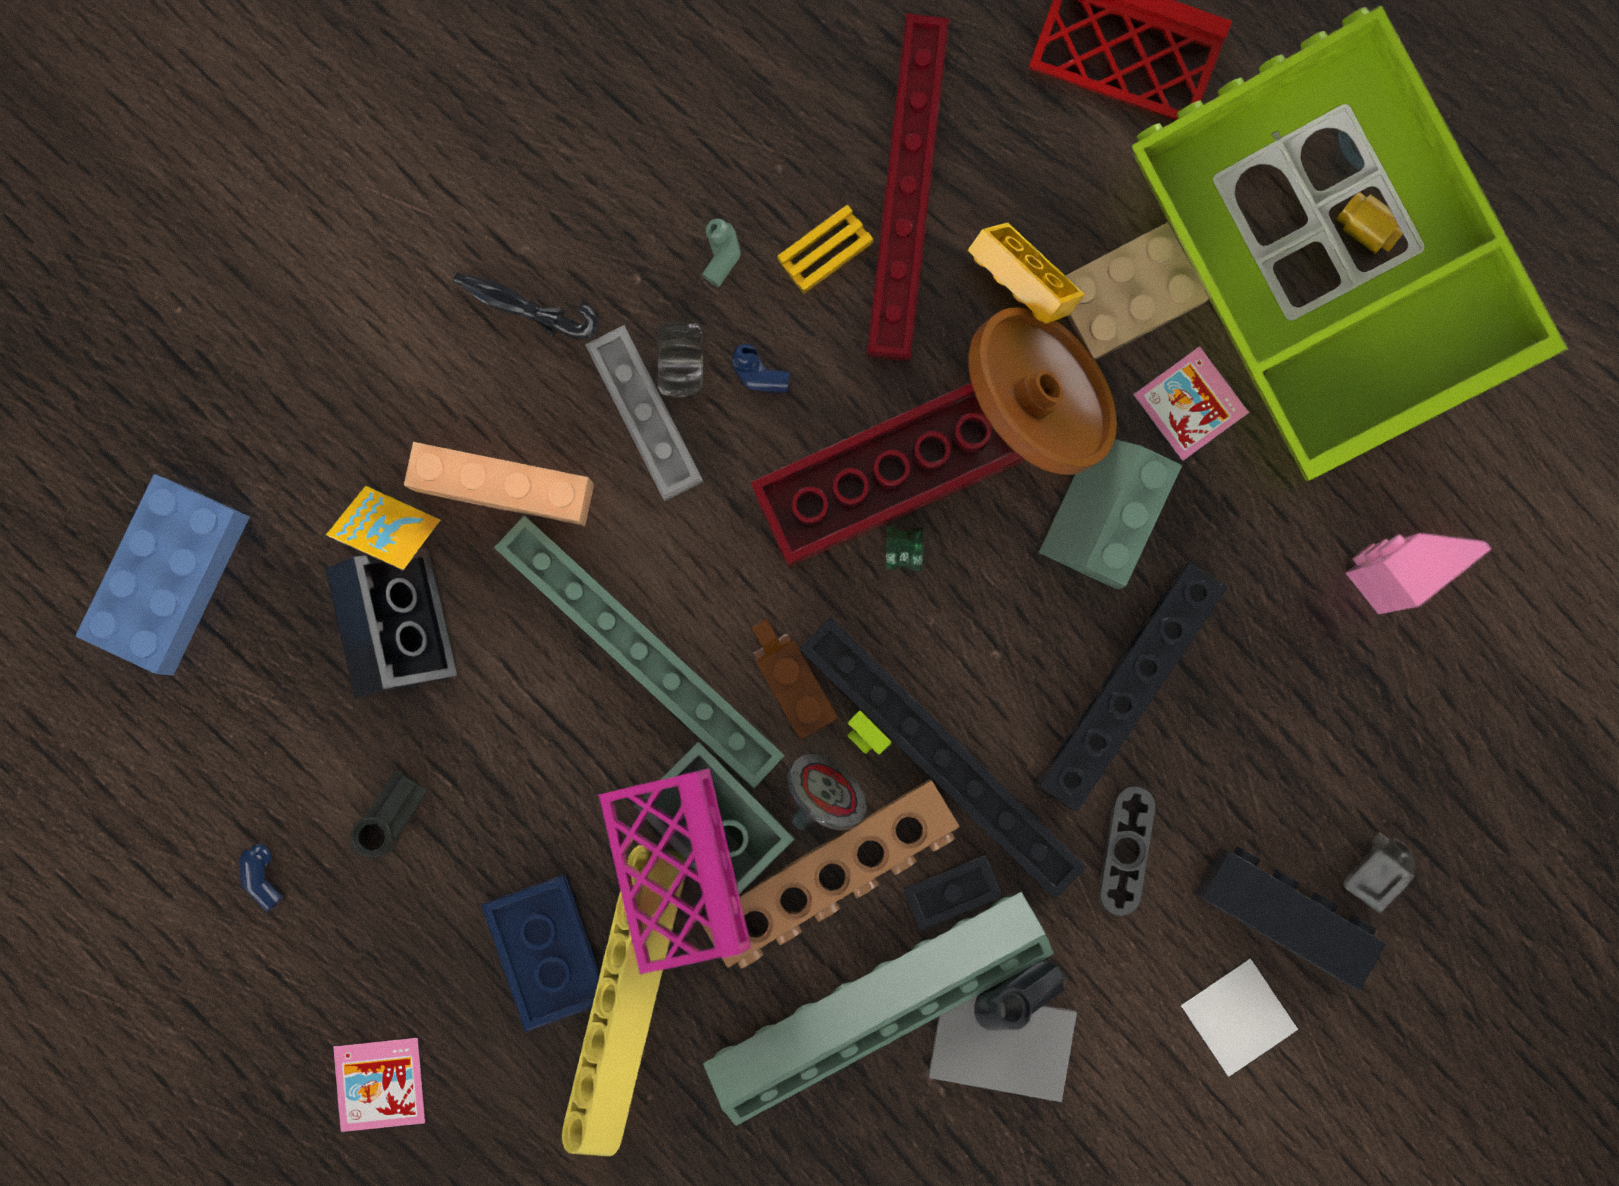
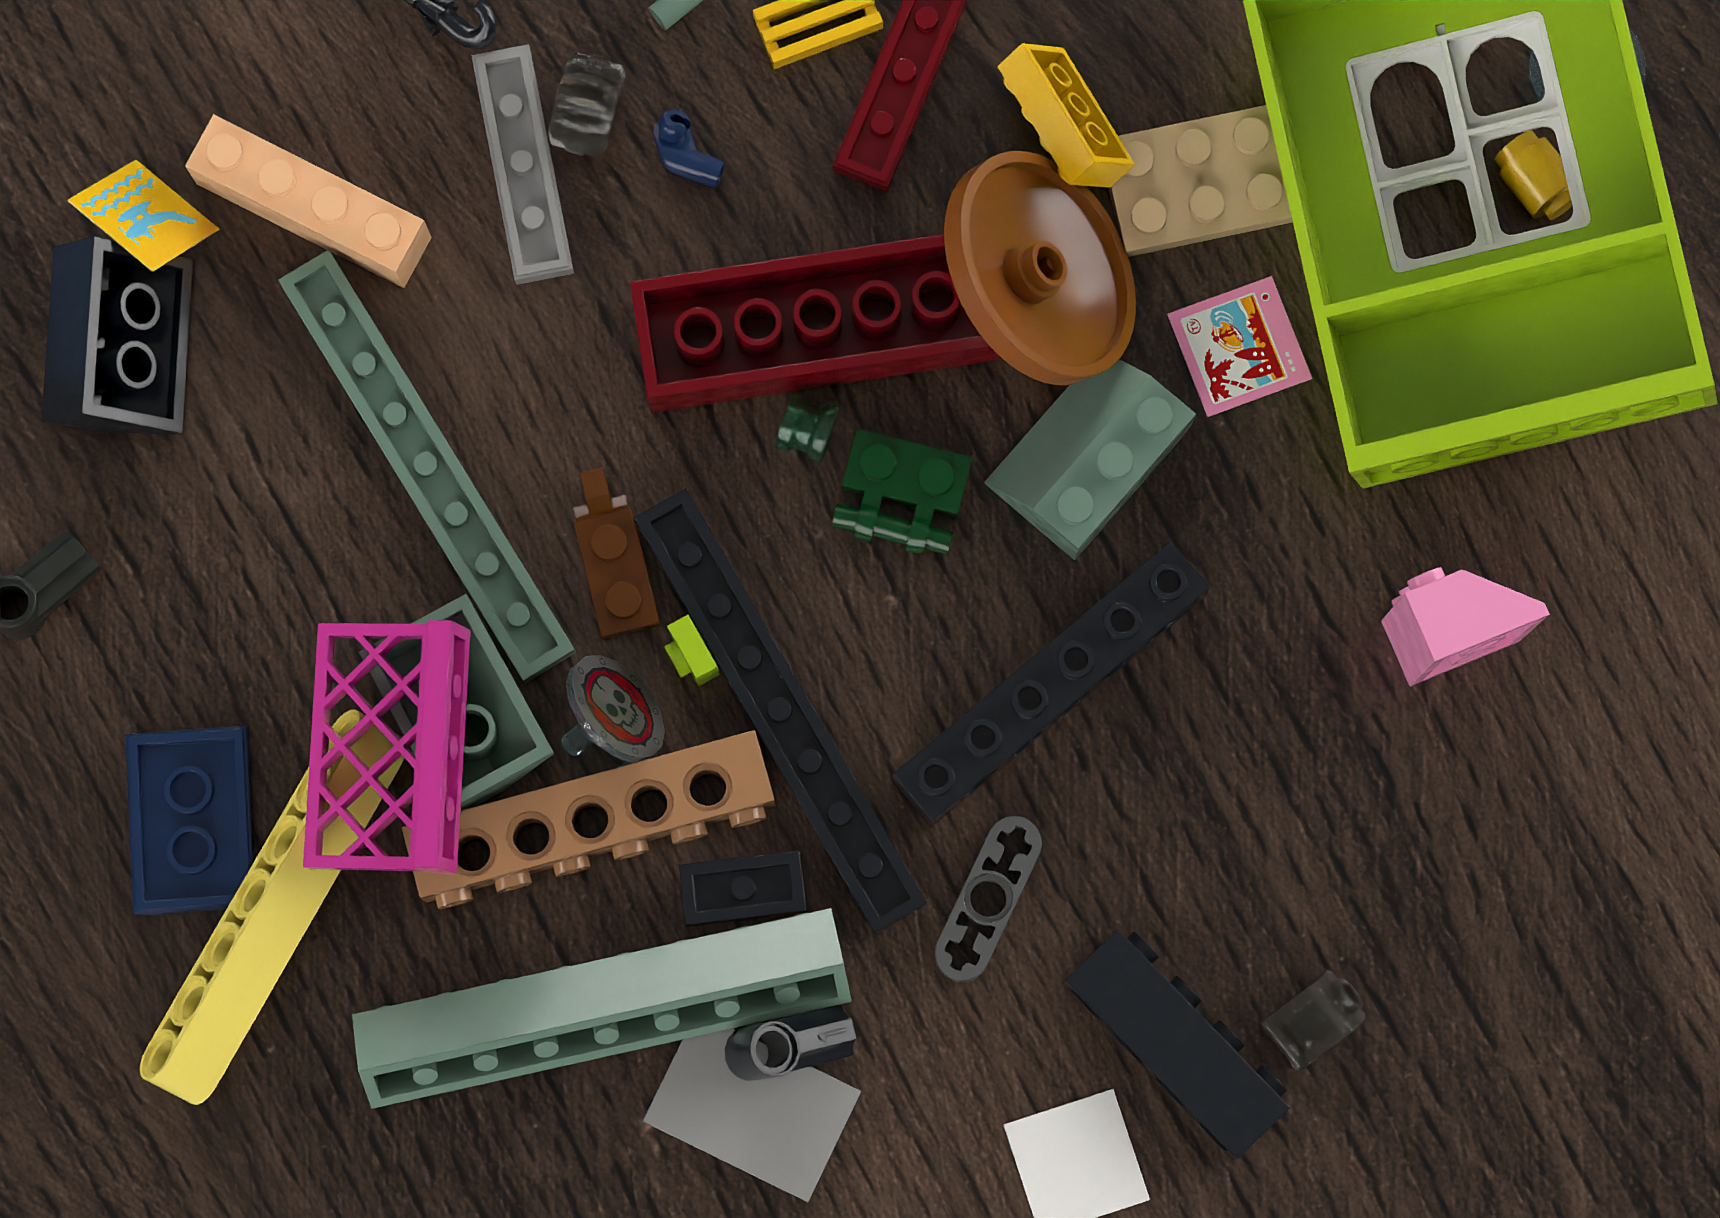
camera: 15 degrees right, 5 degrees down
(983, 562) = (905, 475): none -> dark green plate

